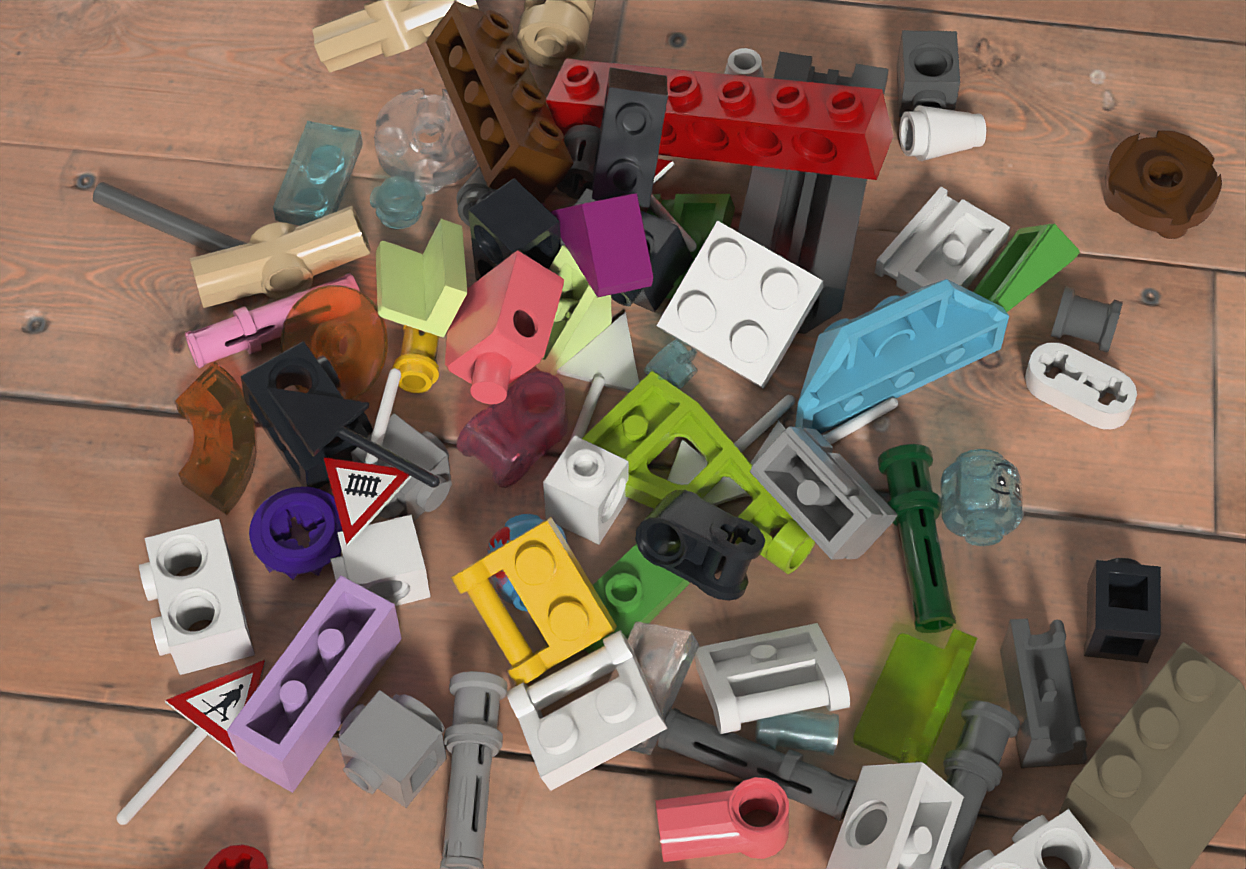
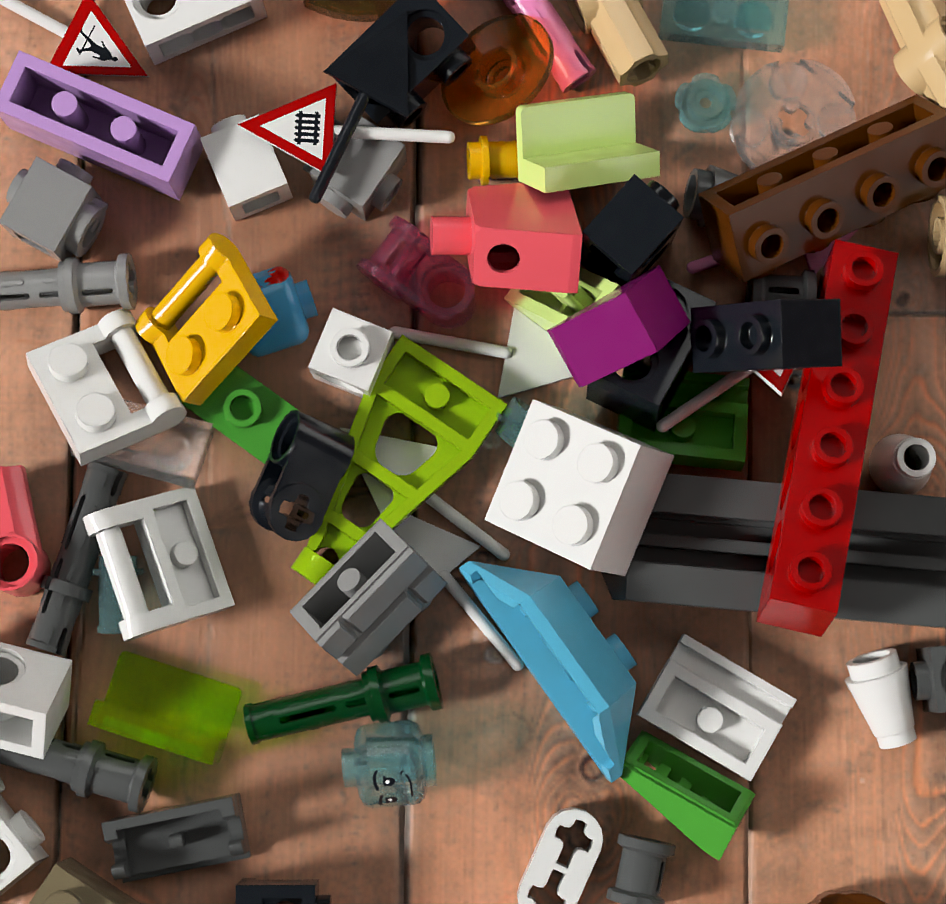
camera: 80 degrees right, 25 degrees up
(272, 525) = (289, 52): dark purple gear -> none

